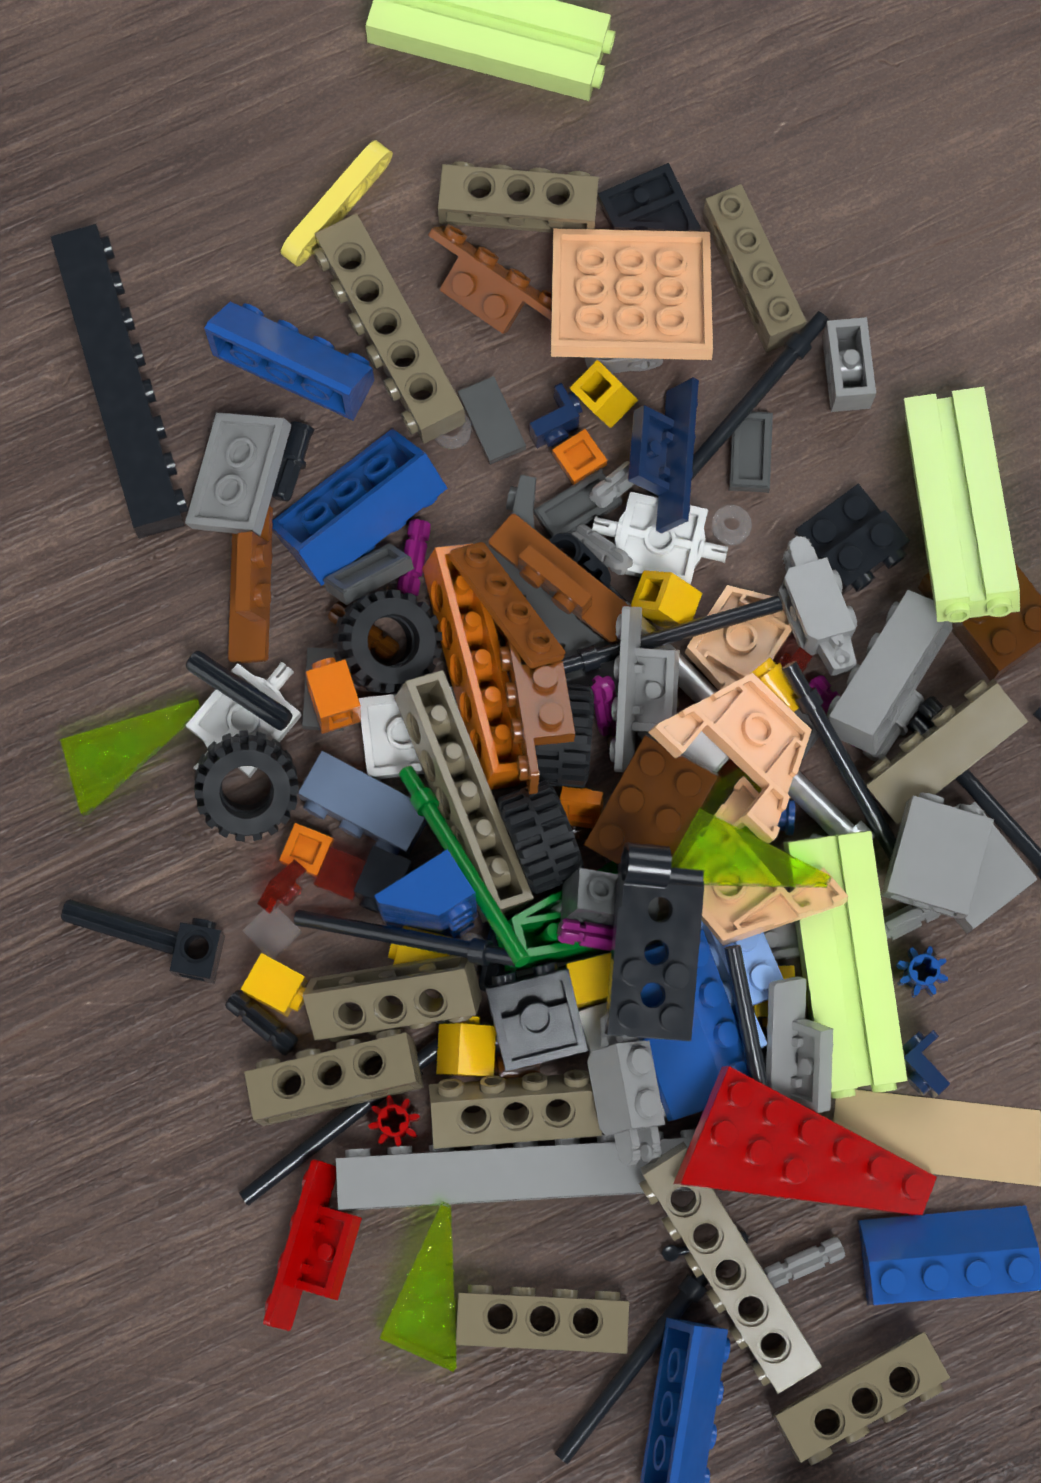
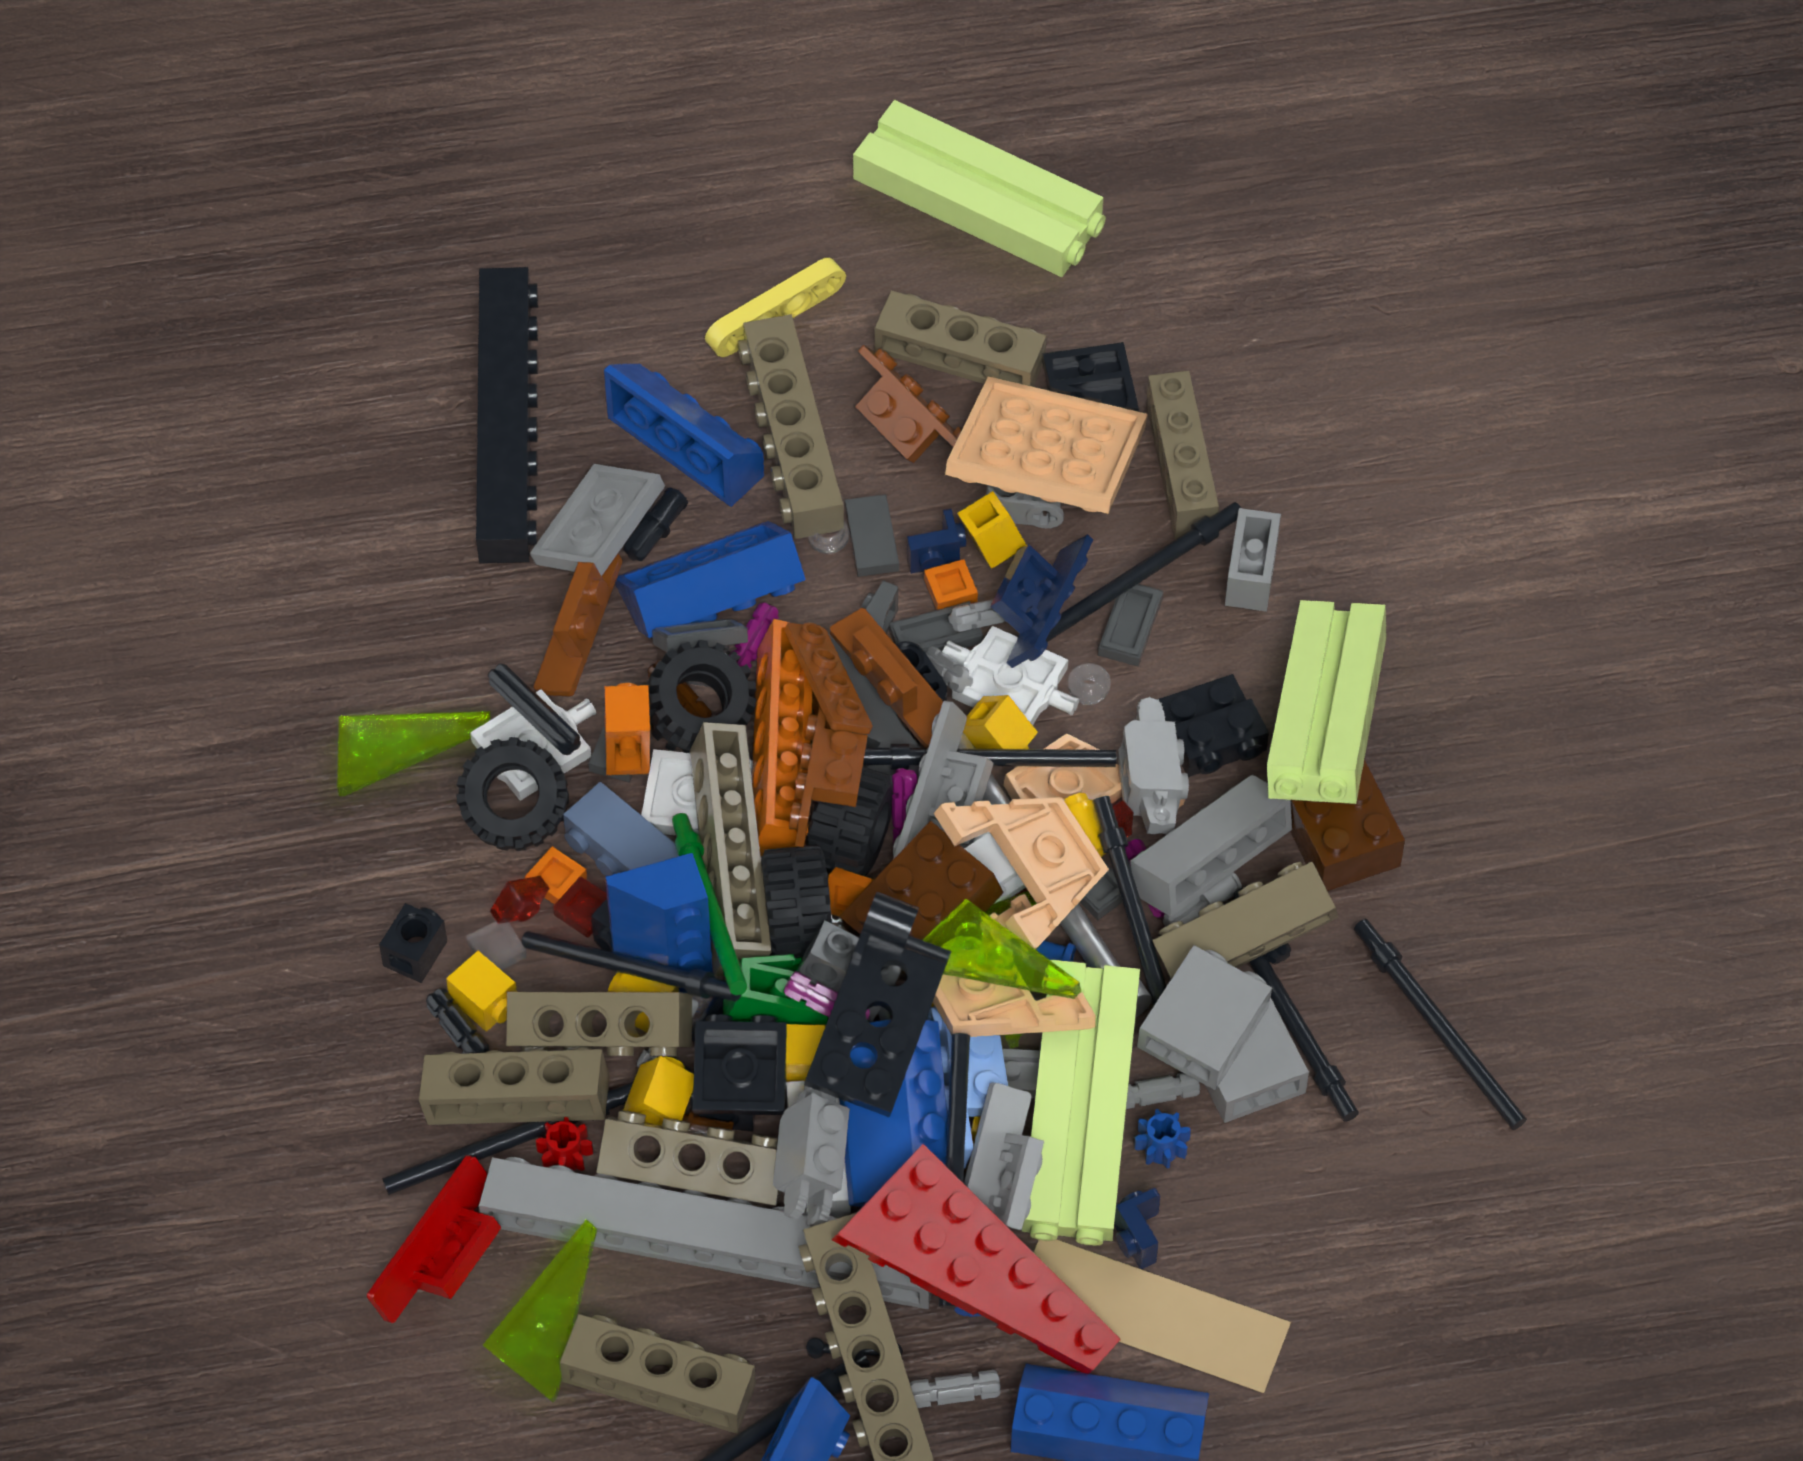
camera: 15 degrees right, 20 degrees down
(119, 926) = (339, 902): black axle -> none

